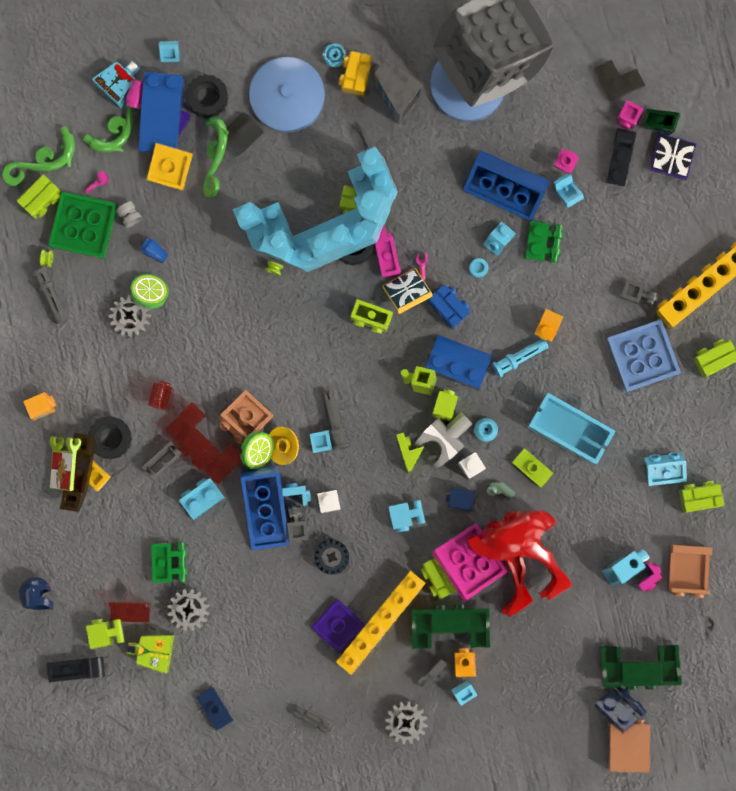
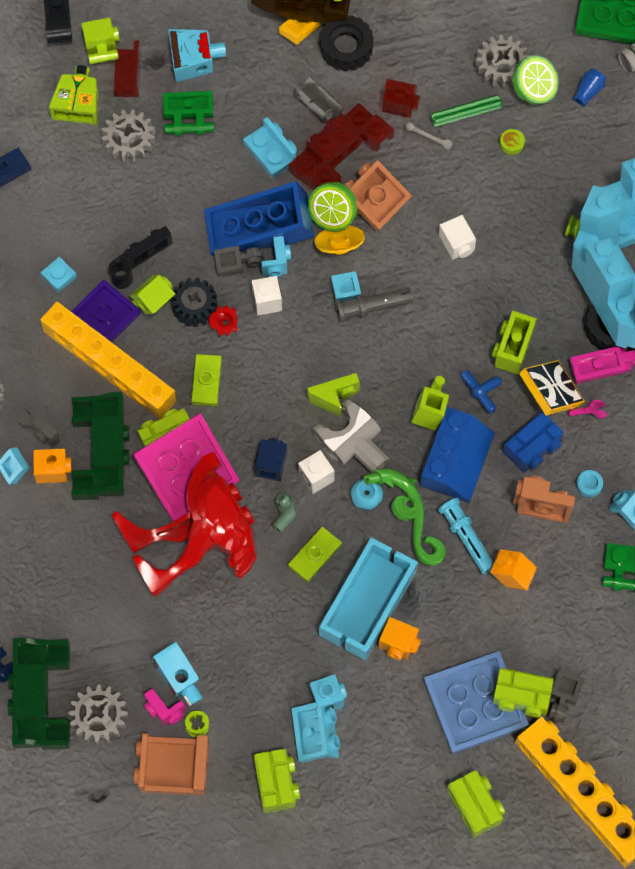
camera: 90 degrees right, 15 degrees down
(116, 559) = (193, 53): none -> medium azure torso
(171, 346) = (466, 110): none -> green axle
(199, 312) = (512, 142): none -> lime tile
(199, 362) = (446, 144): none -> light grey hinge
(282, 356) = (457, 237): none -> white brick
(289, 601) = (137, 254): none -> black plate
(305, 662) = (58, 274): none -> medium azure plate
(329, 588) = (152, 294): none -> lime brick
(348, 540) = (220, 316): none -> red animal
(394, 547) = (206, 380): none -> lime plate
(402, 516) = (248, 386): medium azure brick -> none
(405, 344) = (479, 391): none -> blue piece
(445, 405) = (397, 433): lime brick -> none
(495, 305) = (536, 500): none -> nougat plate
(502, 403) = (416, 512): none -> bright green plant
(599, 407) = (399, 639): none -> light orange brick
(640, 459) = (328, 692): none -> medium azure bracket
(641, 321) = (523, 692): none -> lime brick
(647, 630) = (90, 722): none -> light grey gear
(660, 559) = (188, 725): none -> lime bush

